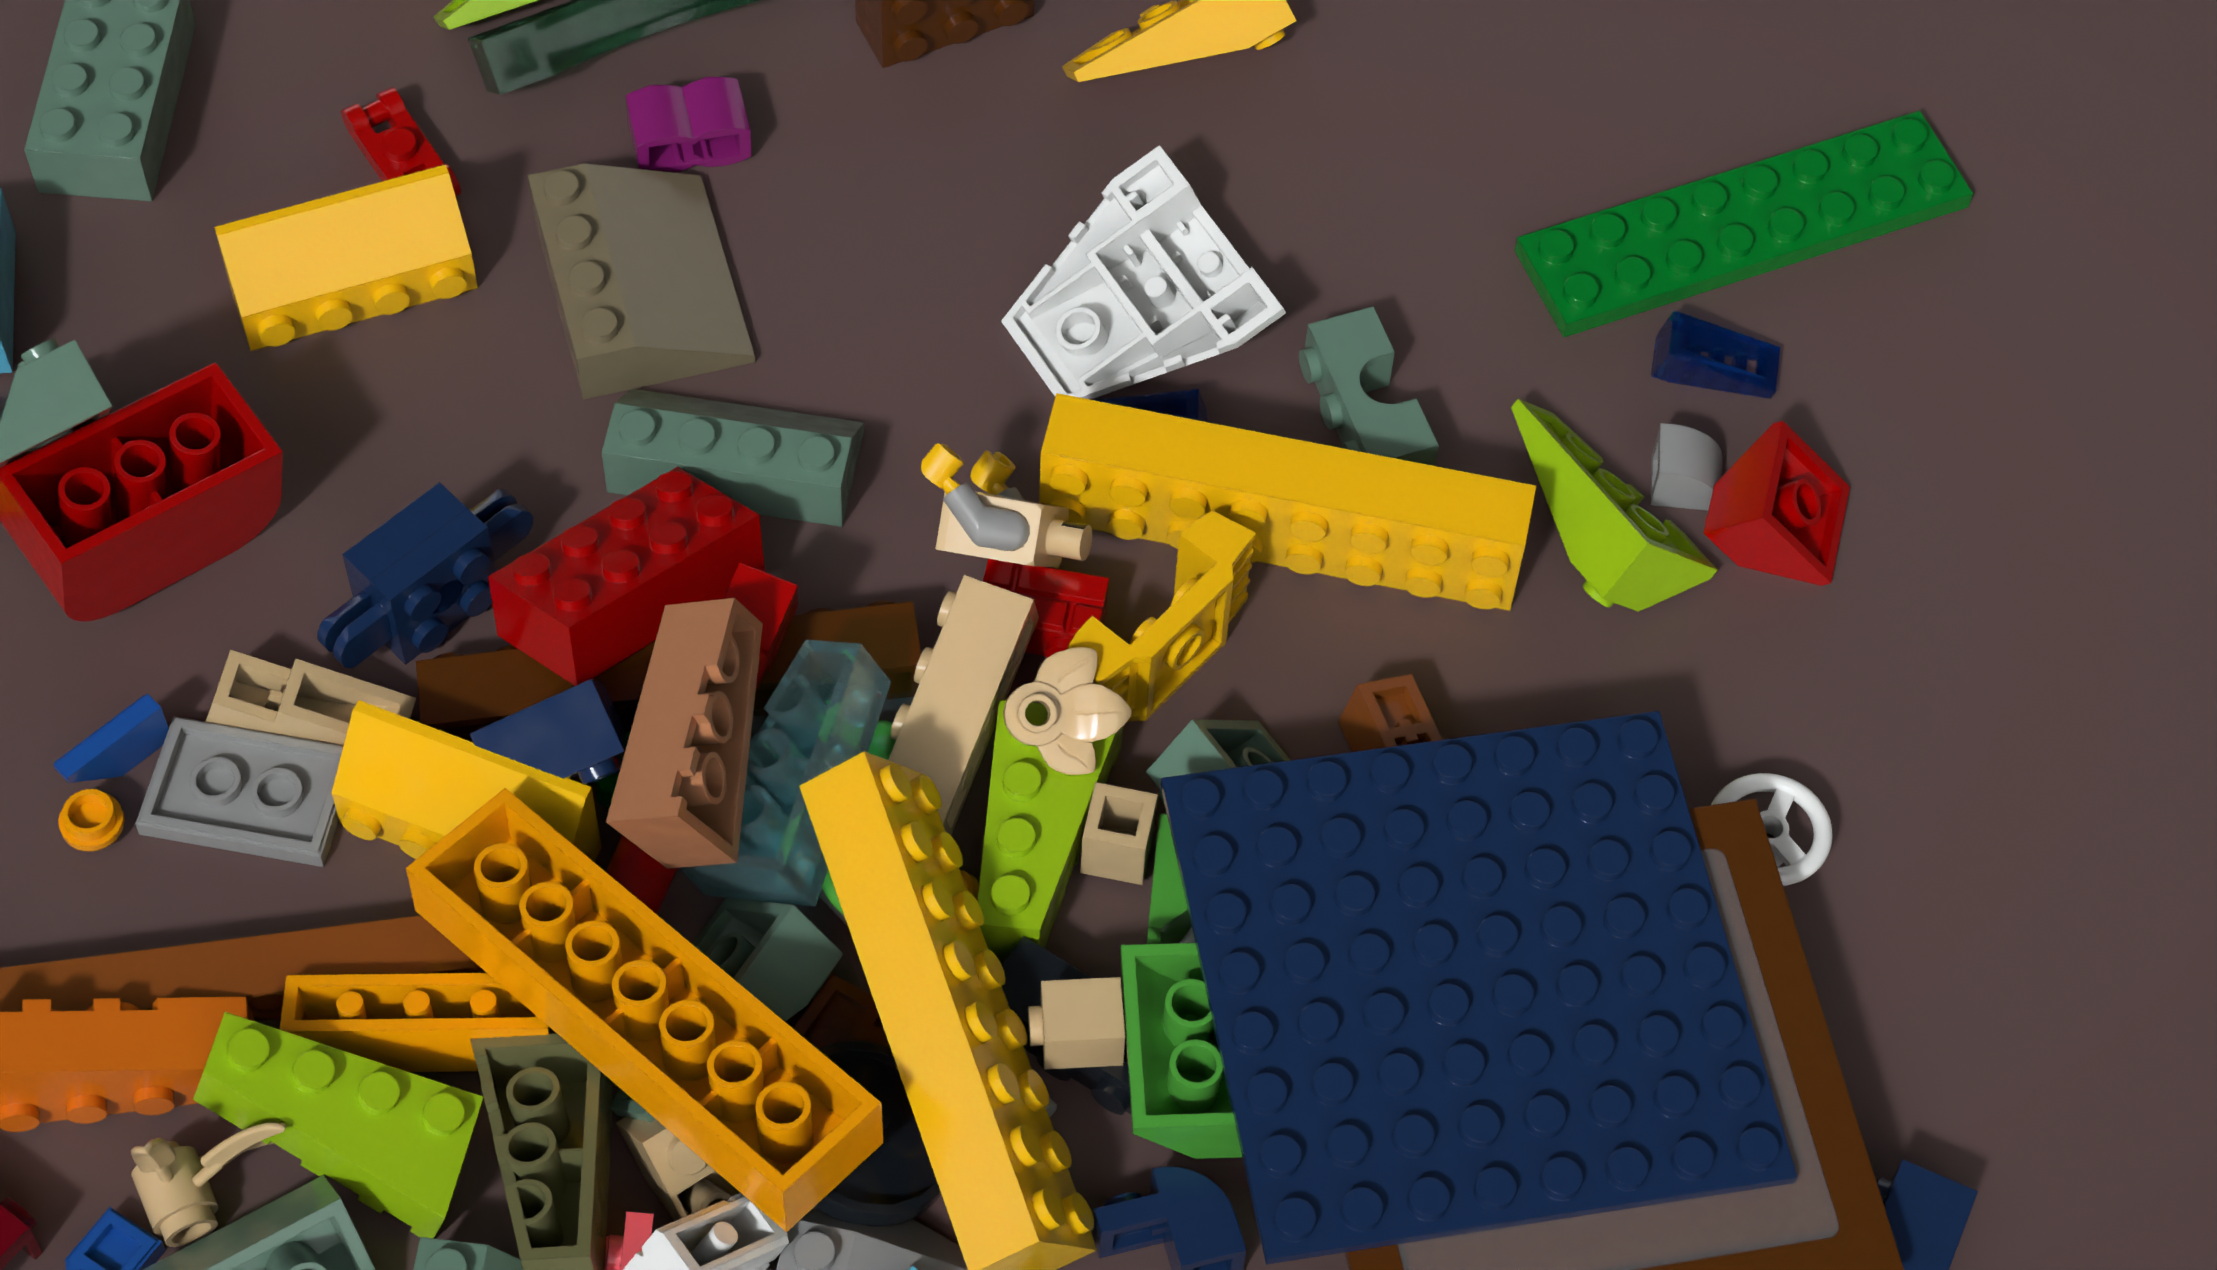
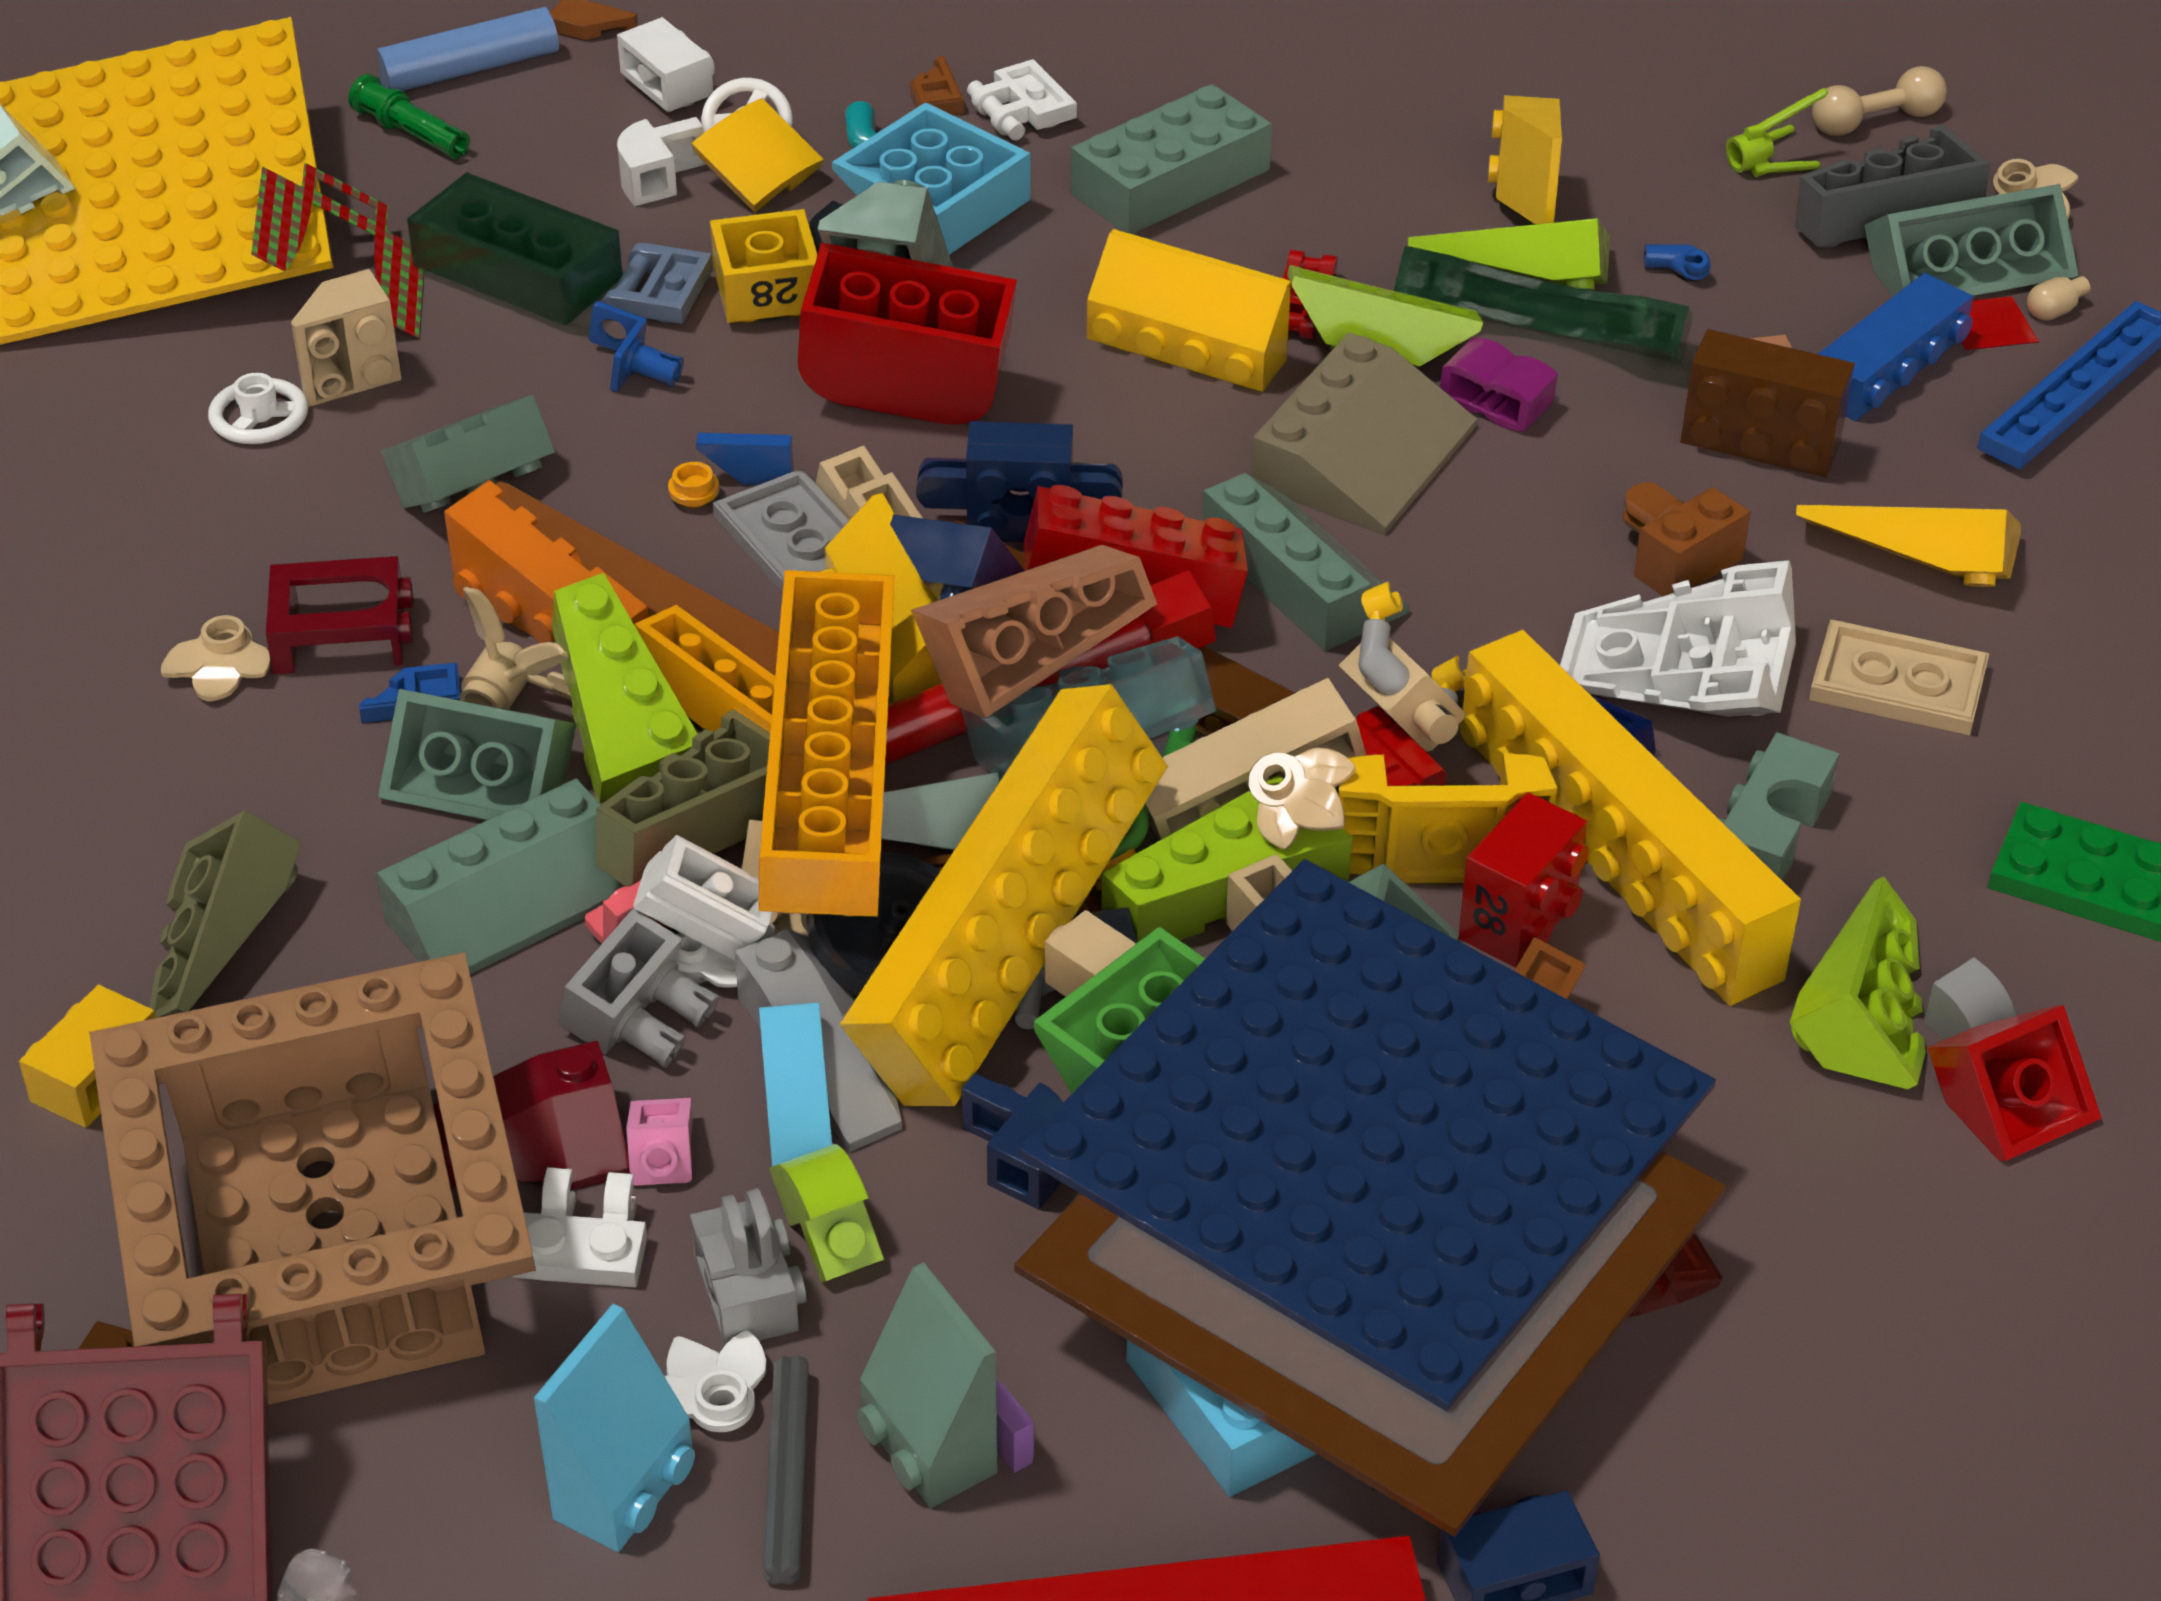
camera: 50 degrees right, 15 degrees down
(530, 130) = (1407, 323): none -> lime wedge
(1015, 174) = (1684, 538): none -> dark orange brick
(1286, 634) = (1523, 879): none -> red brick
(1303, 183) = (1899, 677): none -> tan tile
(1680, 361) = (2078, 934): clear blue slope -> none
(1786, 790) = (1742, 1252): white piece -> none

